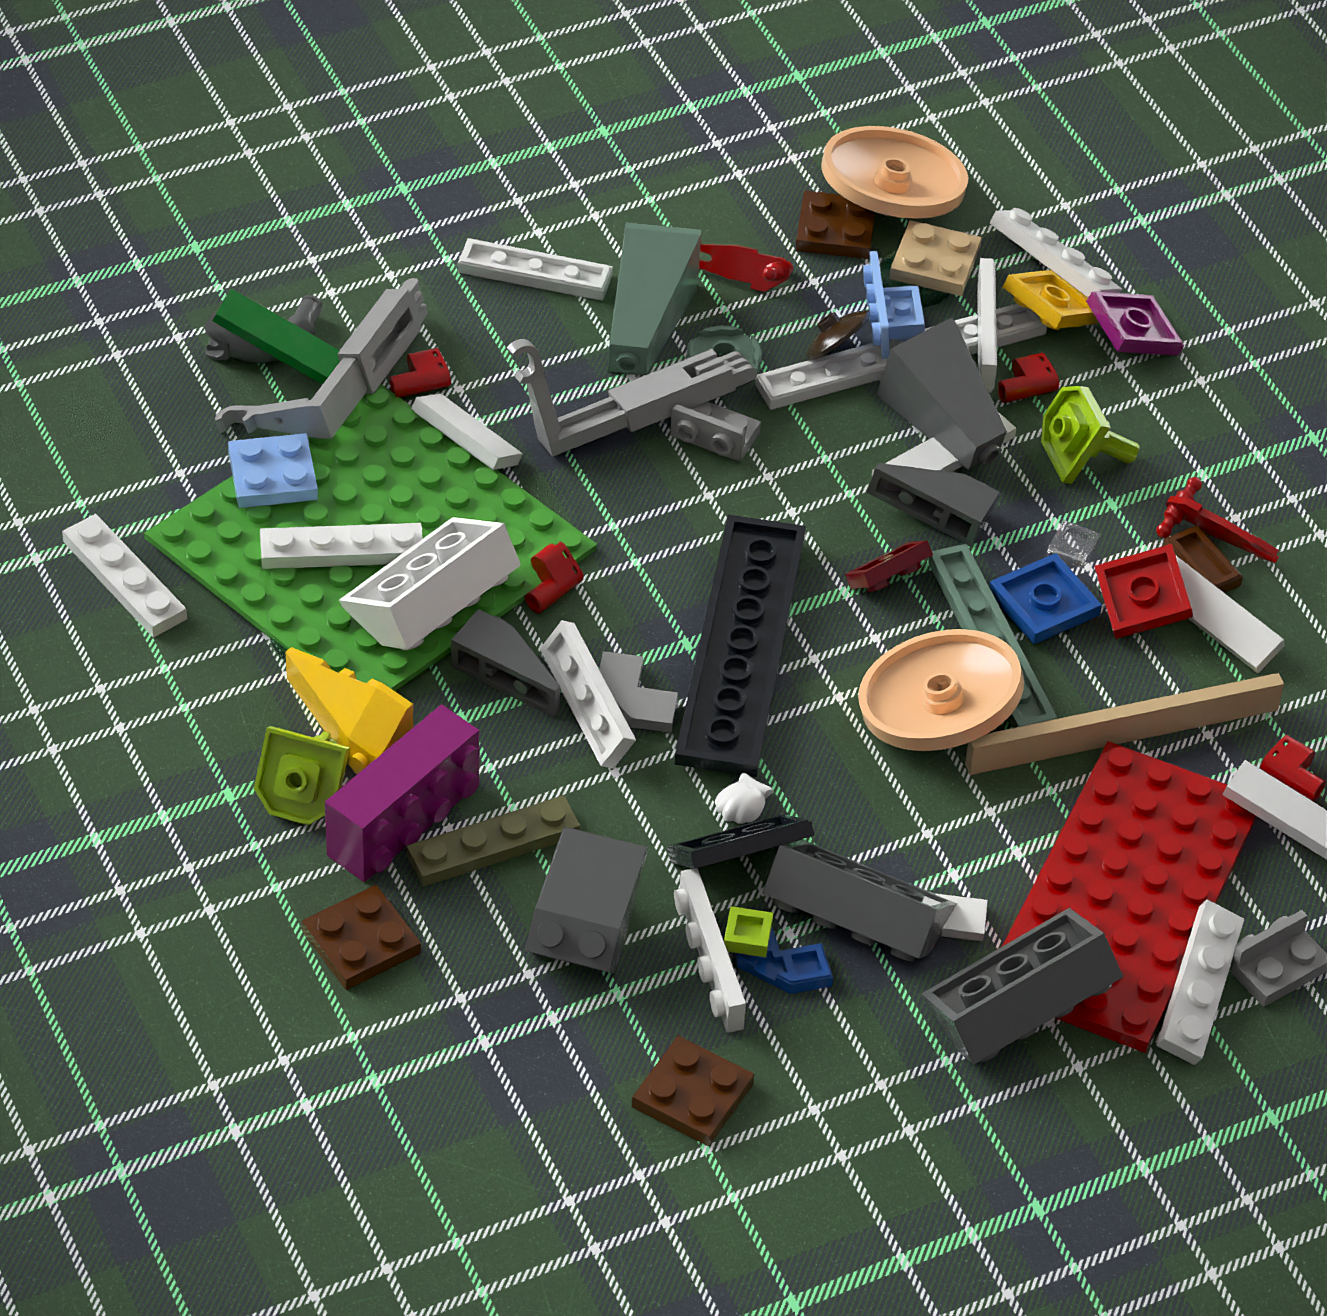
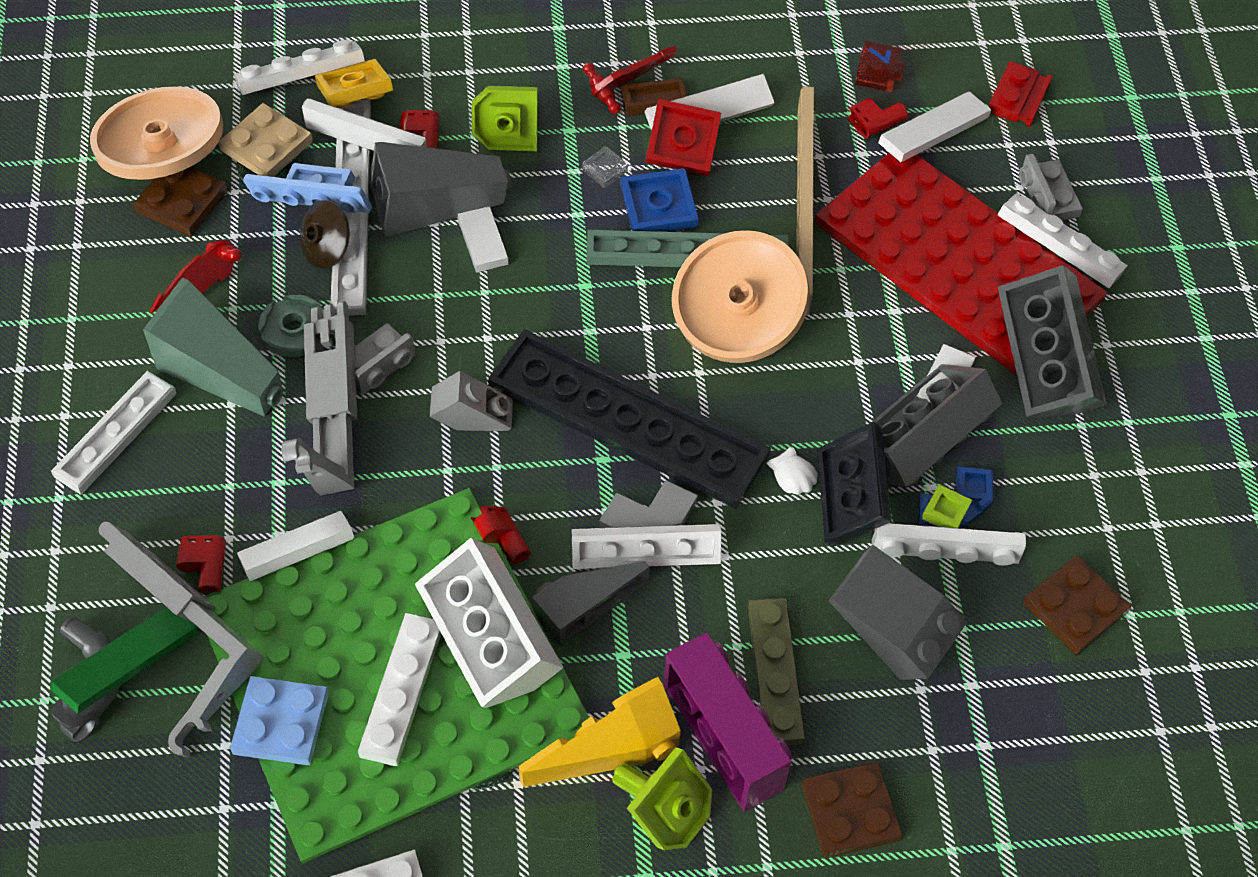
camera: 70 degrees left, 10 degrees up
(690, 513) = (470, 405): none -> light grey slope
(900, 560) = (586, 288): dark red plate -> none
(938, 498) = (541, 225): dark grey slope -> none
(1135, 323) = (400, 44): magenta tile -> none

